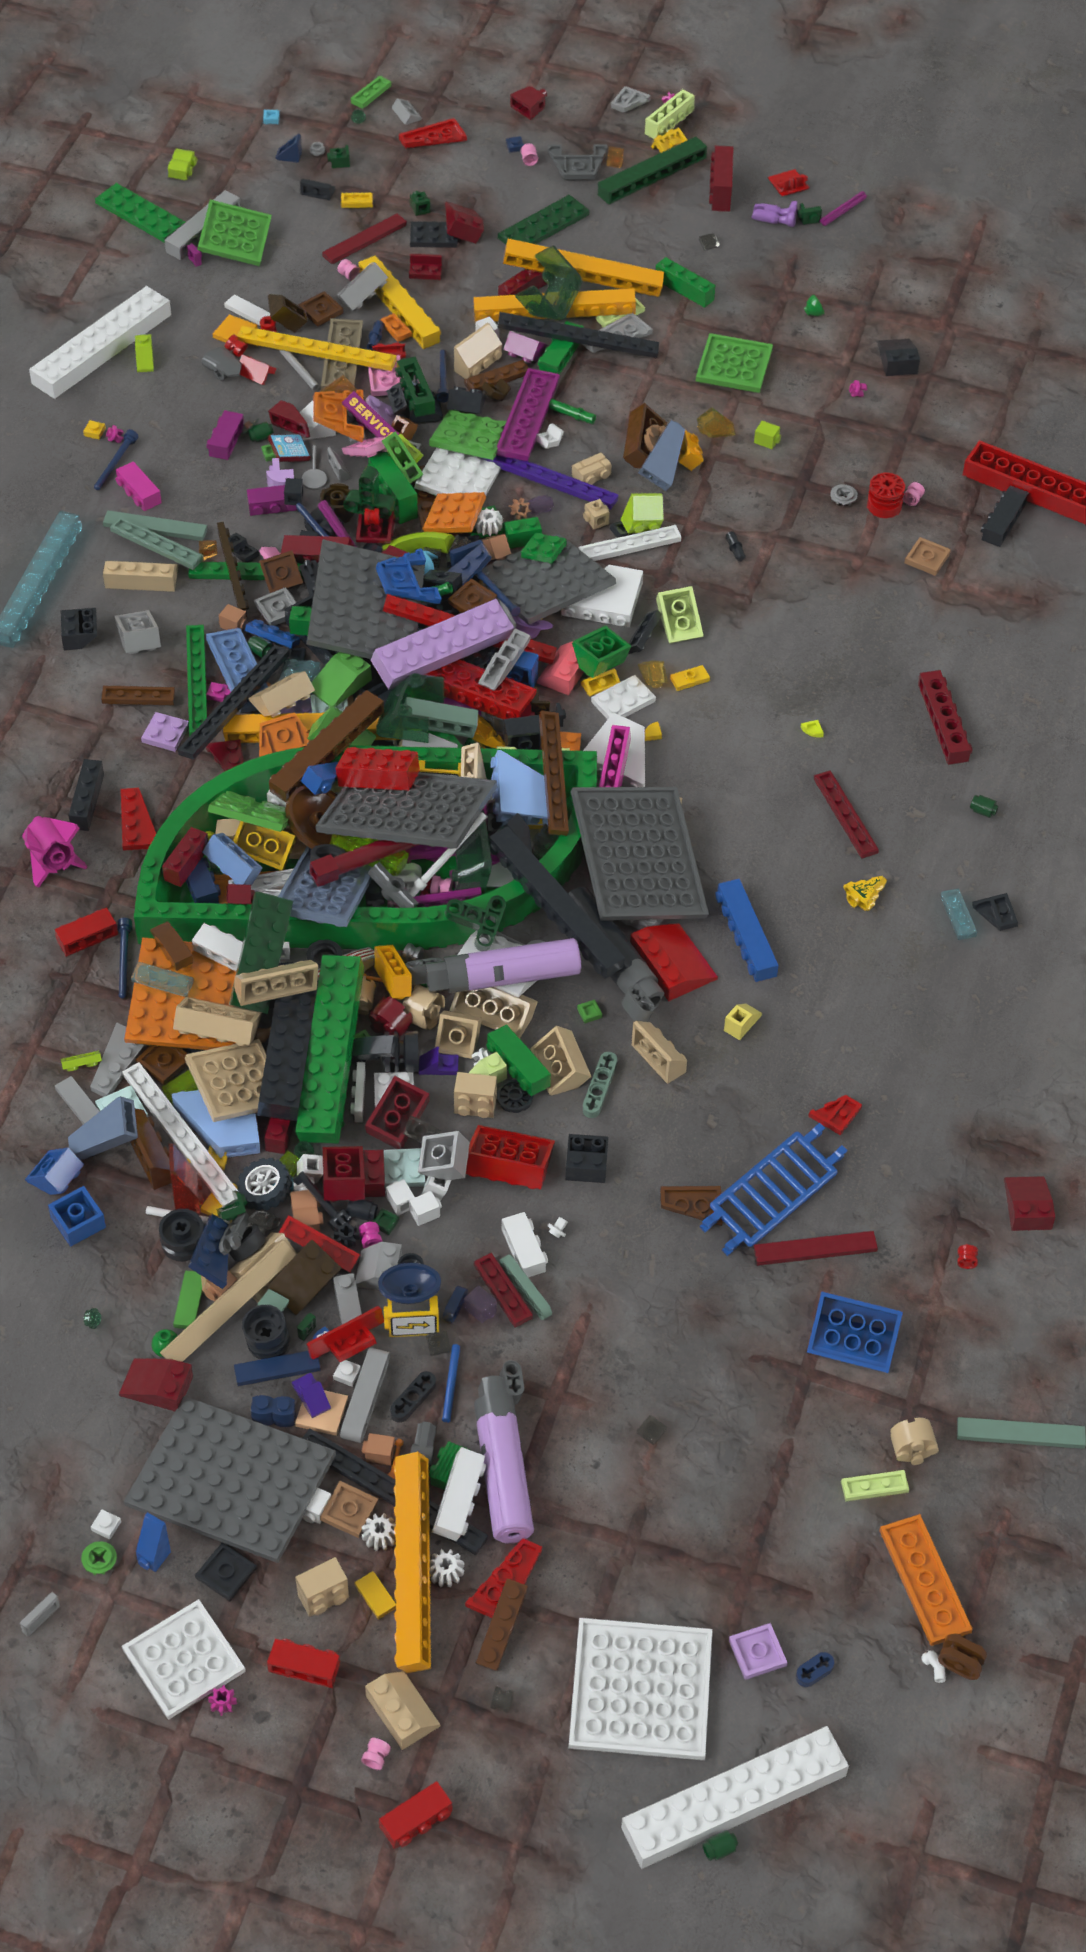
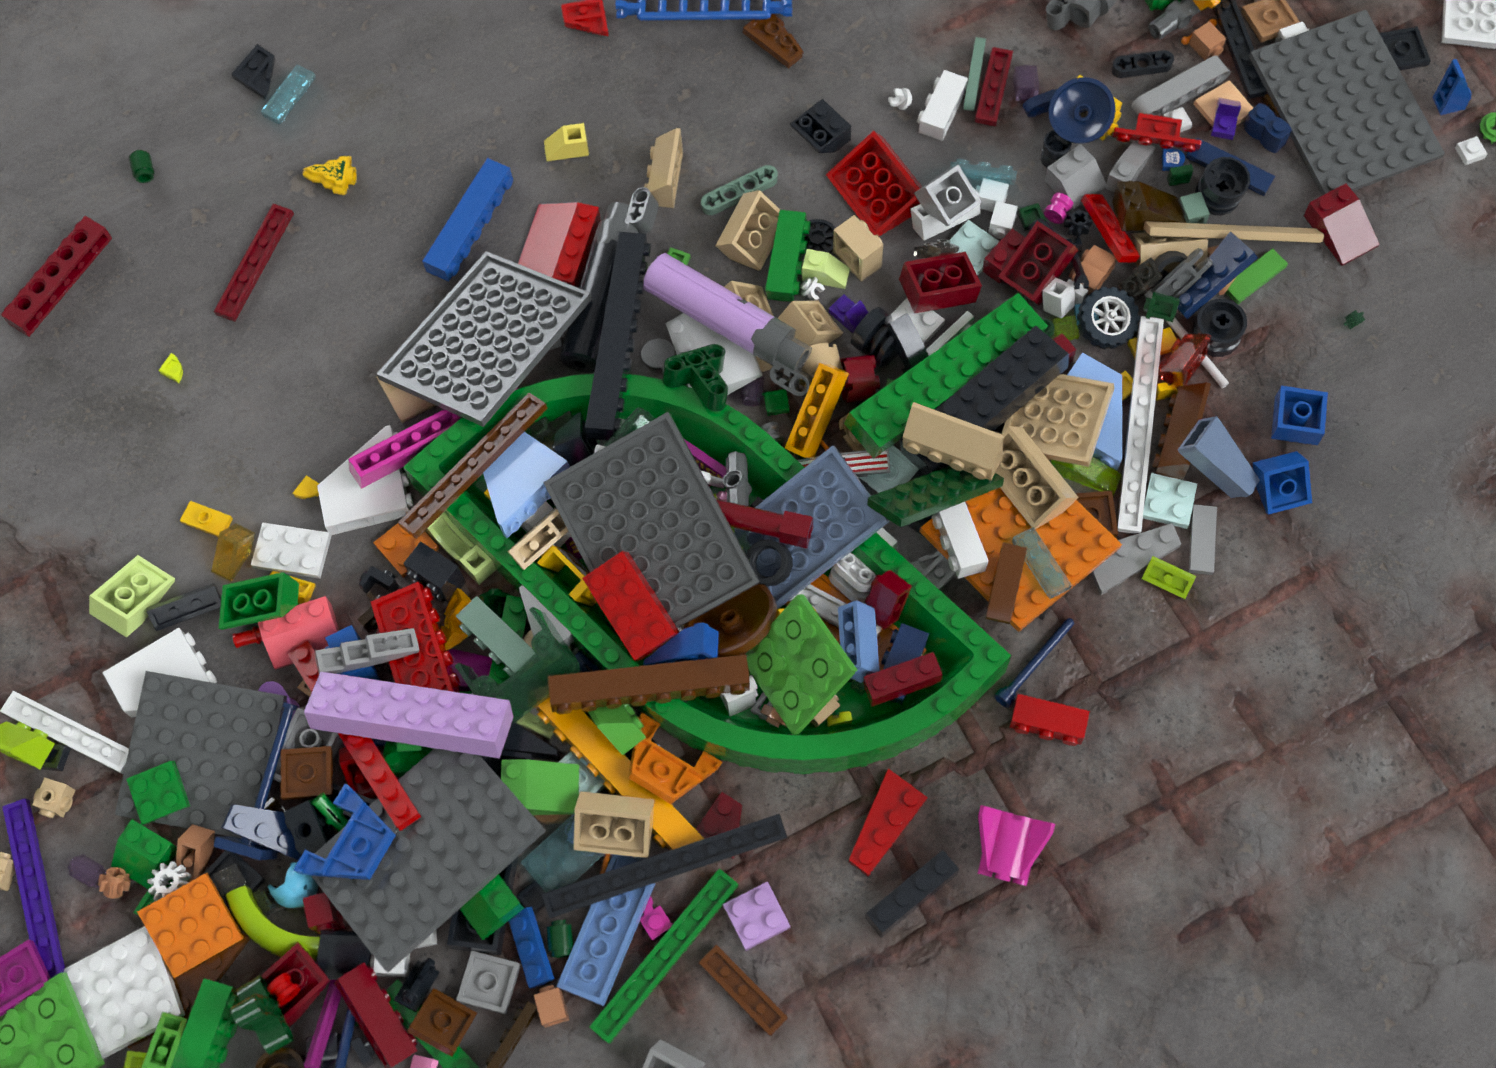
camera: 130 degrees left, 15 degrees up
(161, 1340) = (1305, 256): green brick -> none
(443, 1209) = (1004, 174): none -> clear light blue plate
(451, 1383) = (1102, 52): blue bar -> none

